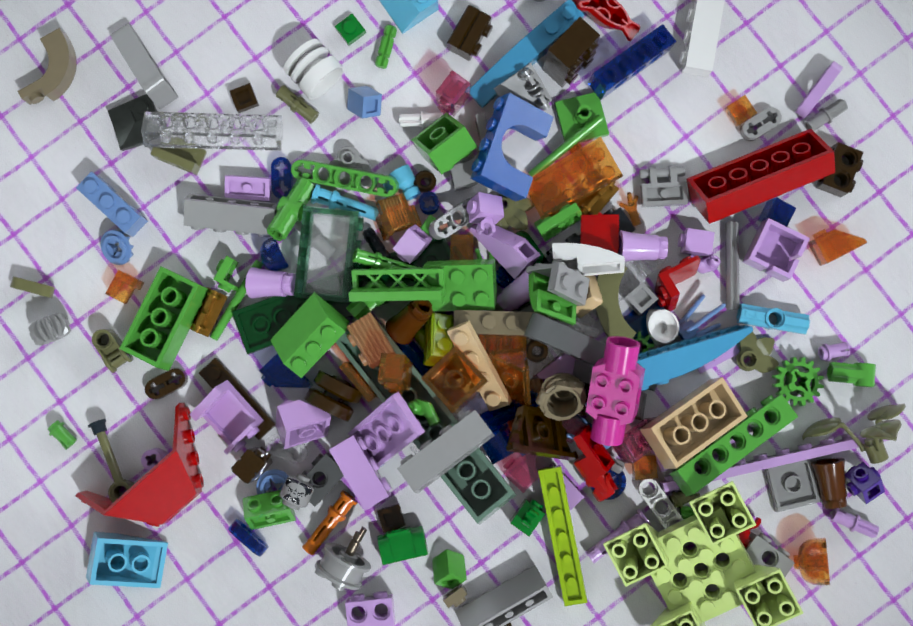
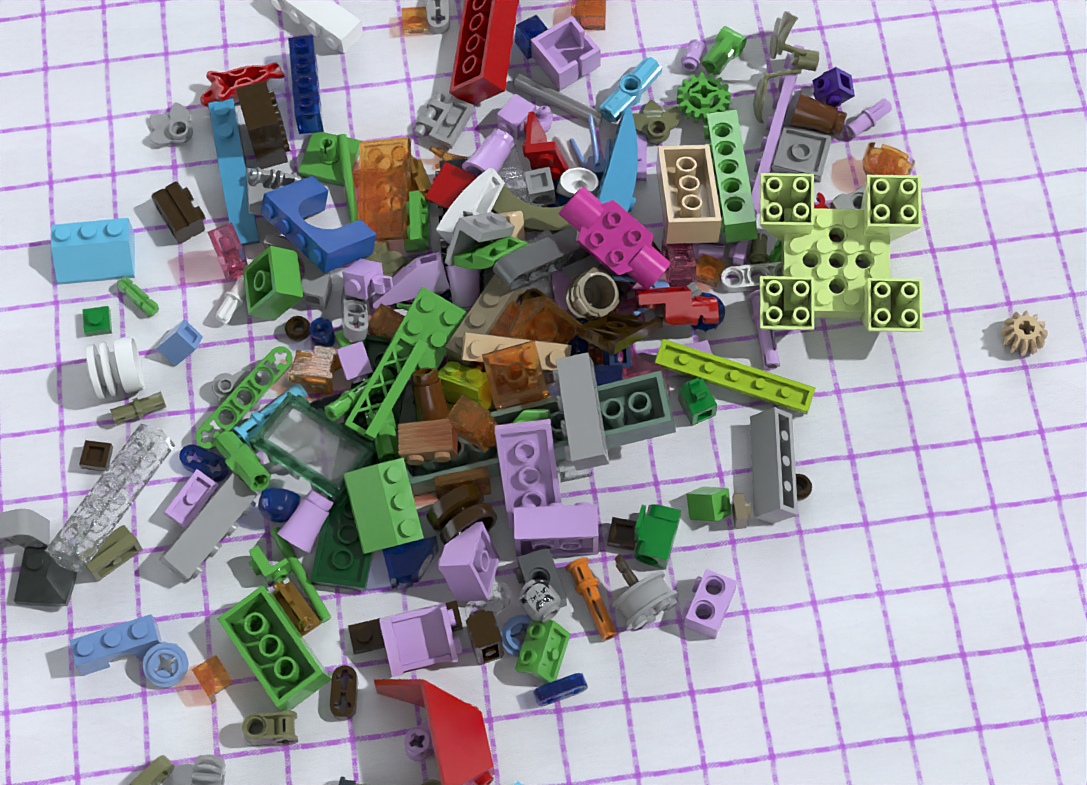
camera: 60 degrees left, 20 degrees down
(406, 182) = (284, 339): medium azure piece -> none

